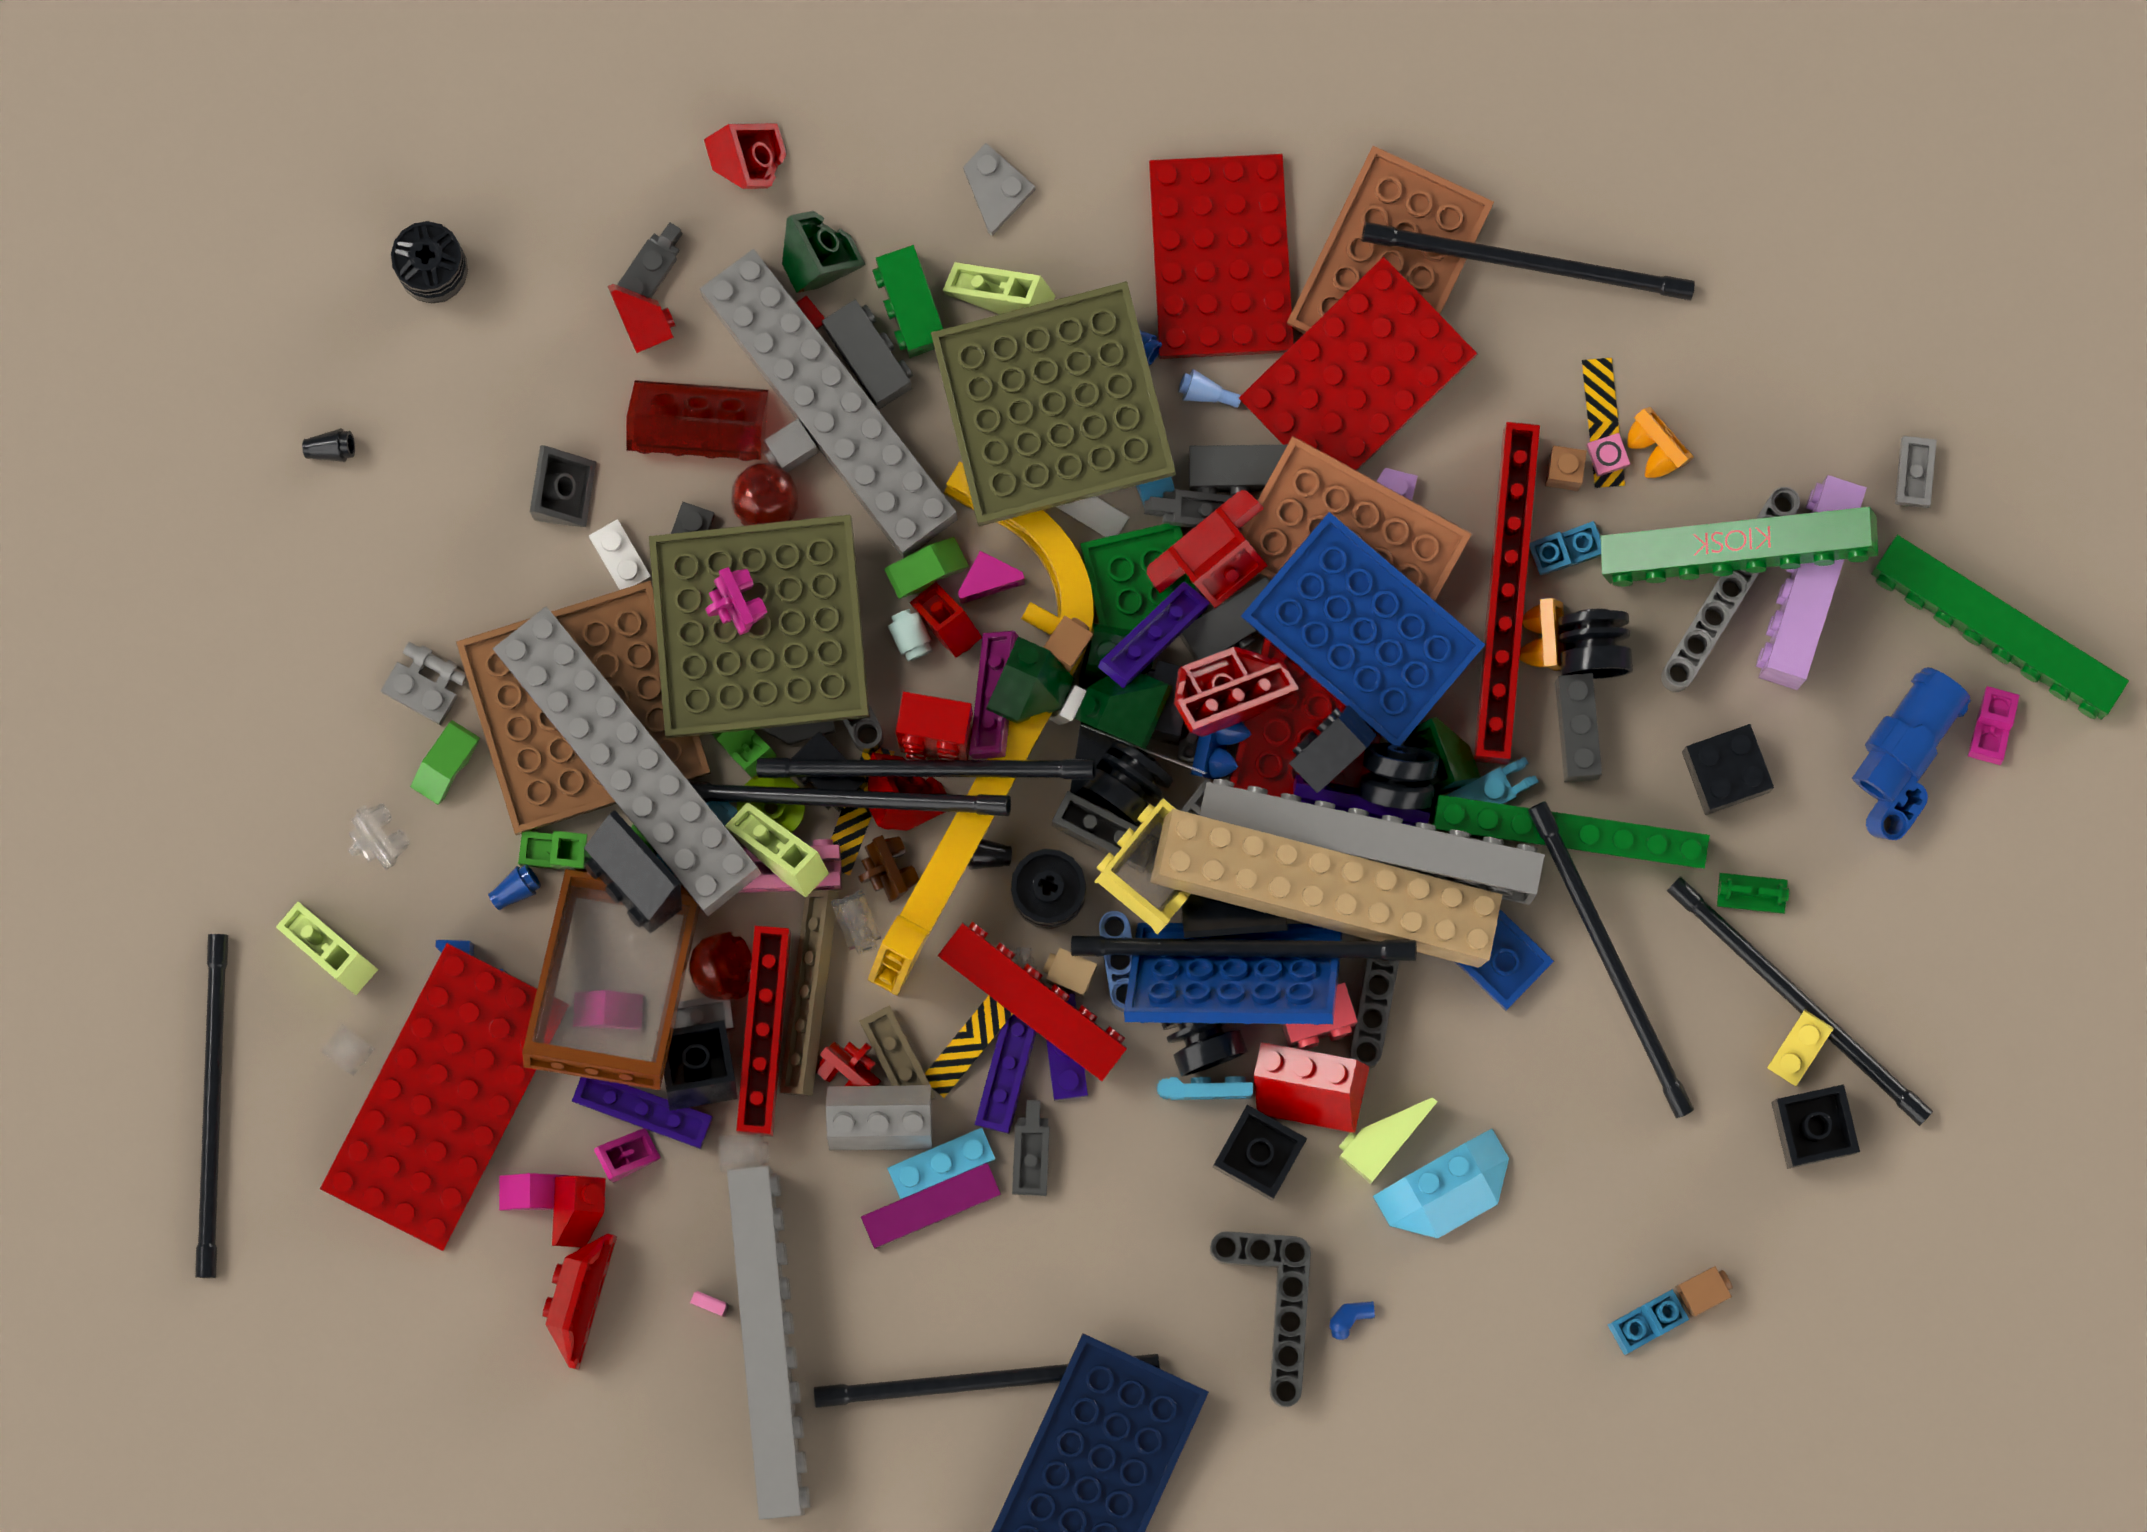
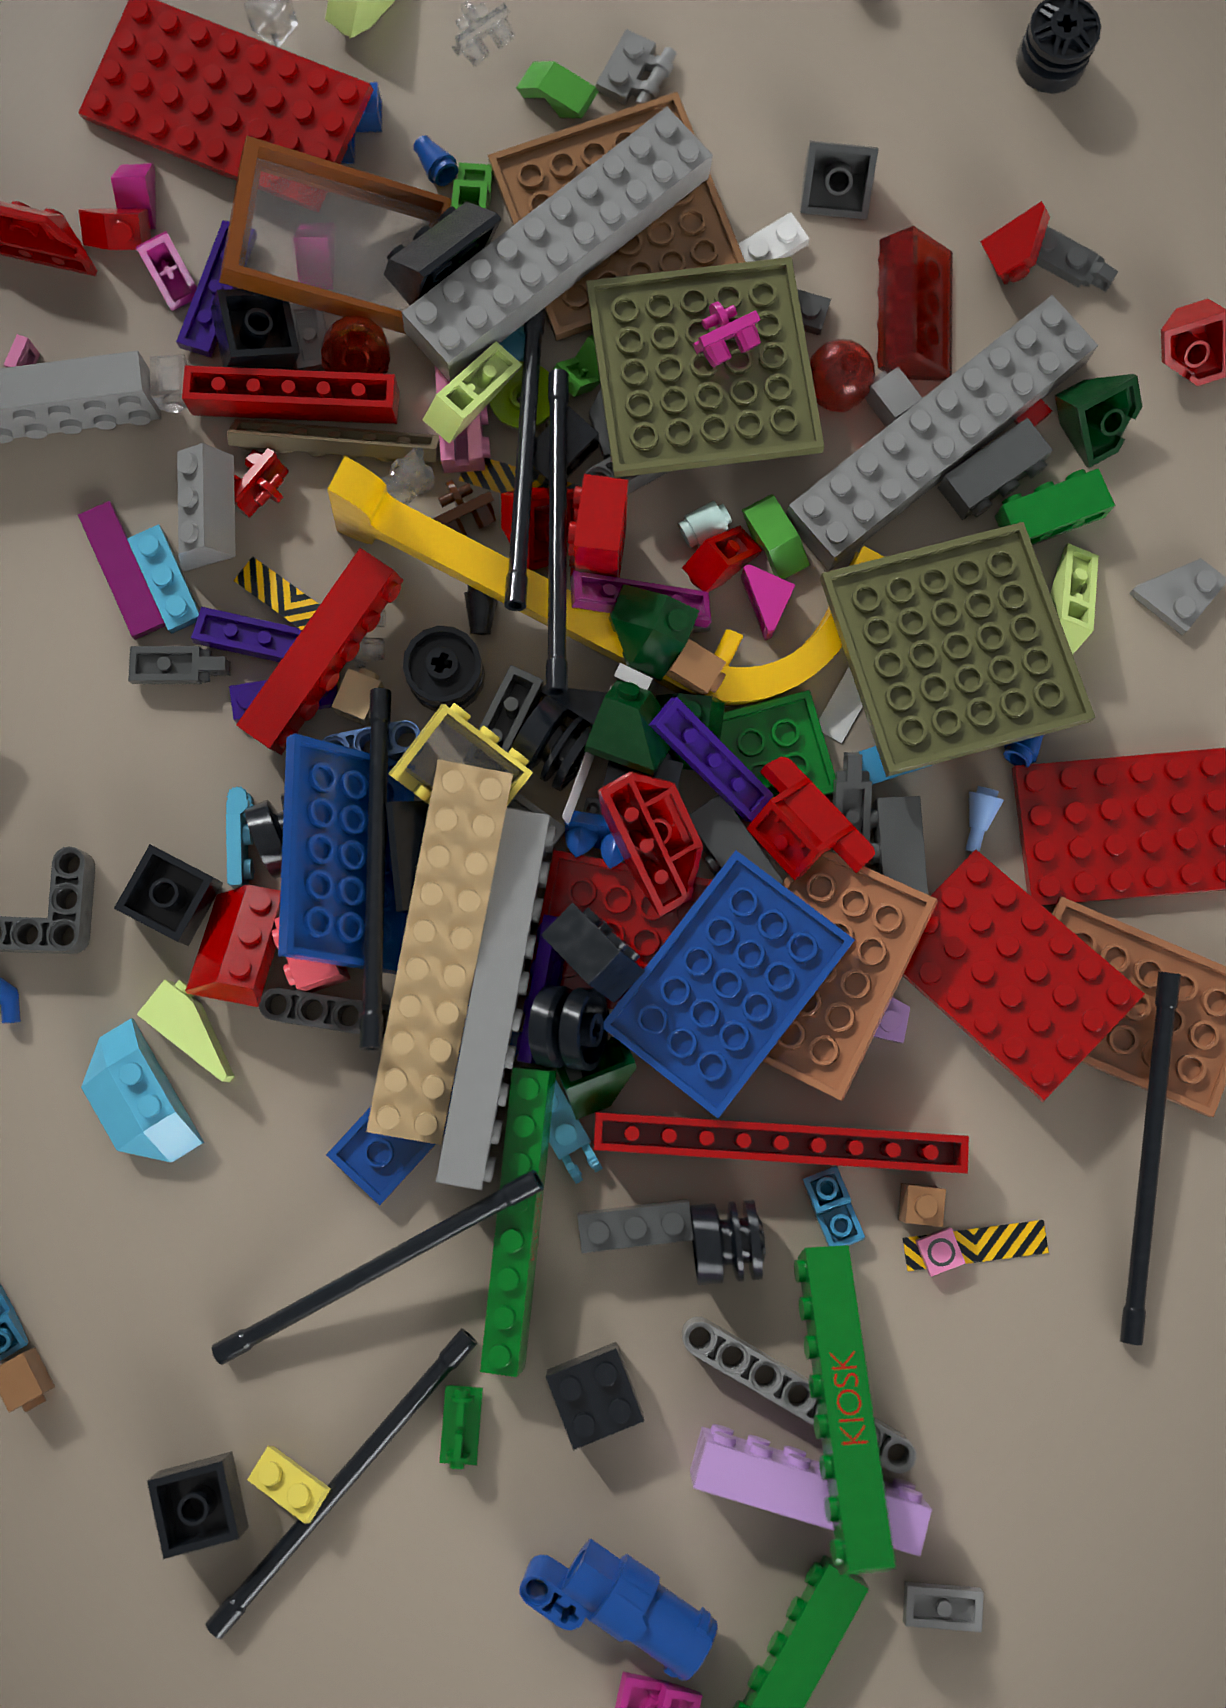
camera: 85 degrees right, 0 degrees up
(893, 1049) = (274, 528): dark tan plate -> none
(1544, 620) = (752, 1183): light orange tile -> none
(1670, 450) = (949, 1321): light orange tile -> none

